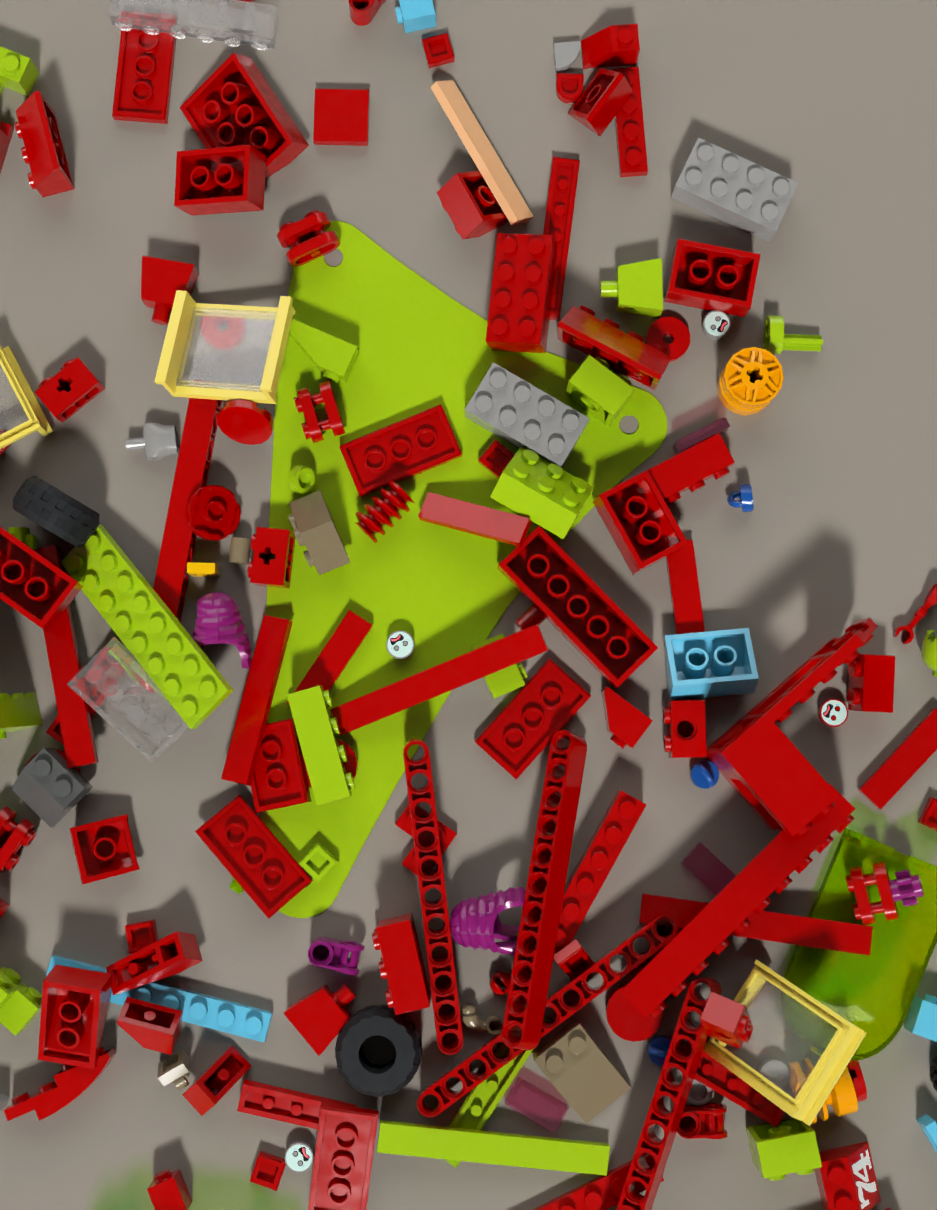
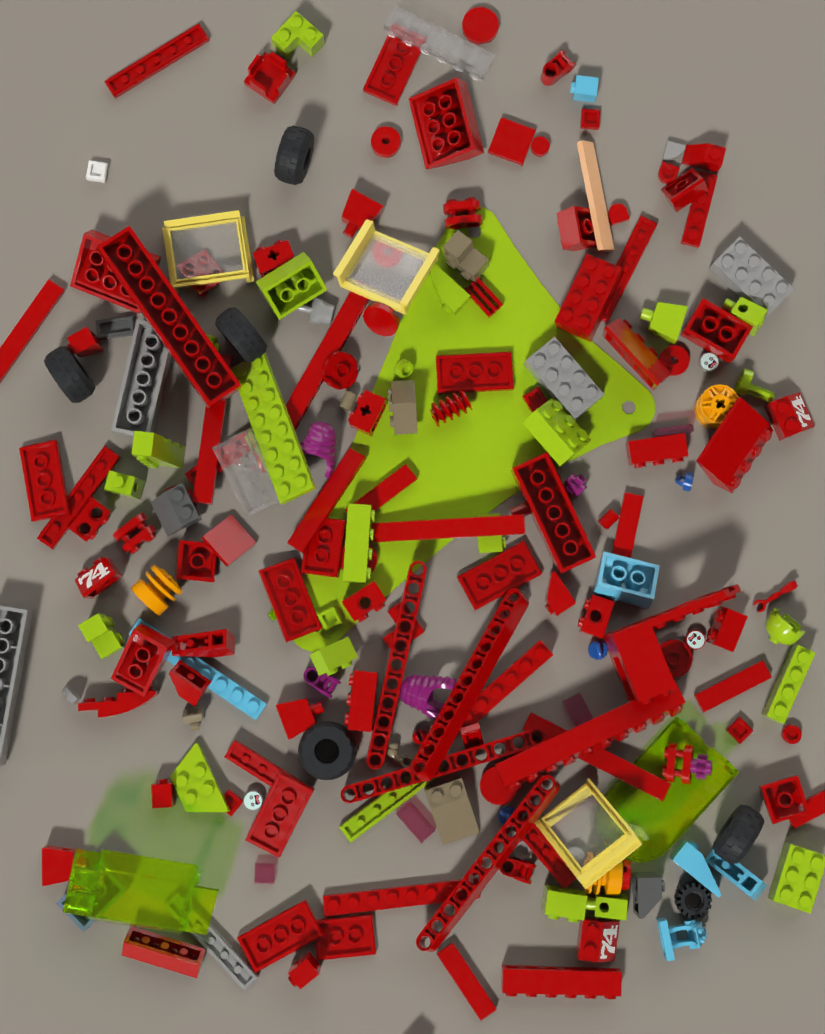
camera: 15 degrees right, 0 degrees up
(43, 146) = (311, 95): red slope -> none
(45, 236) = (294, 155): none -> black tyre
(58, 916) = (157, 589): none -> light orange wheel
(104, 418) = (291, 285): none -> lime brick
(139, 803) = (229, 540): none -> tile
(140, 935) = (200, 624): red tile -> none
(156, 174) = (385, 150): none -> red piece
(203, 569) = (320, 405): yellow tile -> none
(214, 1162) = (197, 784): none -> lime wing
(217, 1080) = (217, 733): red slope -> none
(220, 180) = (419, 157): red brick -> none
(313, 427) = (424, 320): red brick -> none
(330, 296) = (463, 256): none -> dark tan brick
(341, 915) = (333, 656): none -> lime brick
(343, 831) = (370, 591): none -> red brick
(356, 332) = (486, 300): none -> red tile
(382, 110) = (540, 146): none -> red tile
(400, 644) = (430, 497): tile -> none
(475, 519) = (507, 433): tile -> none
(493, 1147) = (378, 838): lime tile -> none
(521, 166) = (618, 214): none -> red tile
(593, 557) = (575, 485): none -> magenta gear
(599, 390) = (617, 378): lime brick -> none
(640, 522) = (613, 472): red slope -> none
(655, 588) = (608, 519): none -> red hinge
(726, 1020) = (556, 807): brick -> none
(745, 236) = (747, 312): none -> lime torso
(794, 426) = (734, 446): none -> red slope
(817, 744) = (677, 656): none -> red tile
(851, 360) = (789, 416): none -> red slope
(856, 1133) = (617, 906): none -> lime torso
(892, 1091) = (646, 892): none -> dark grey slope

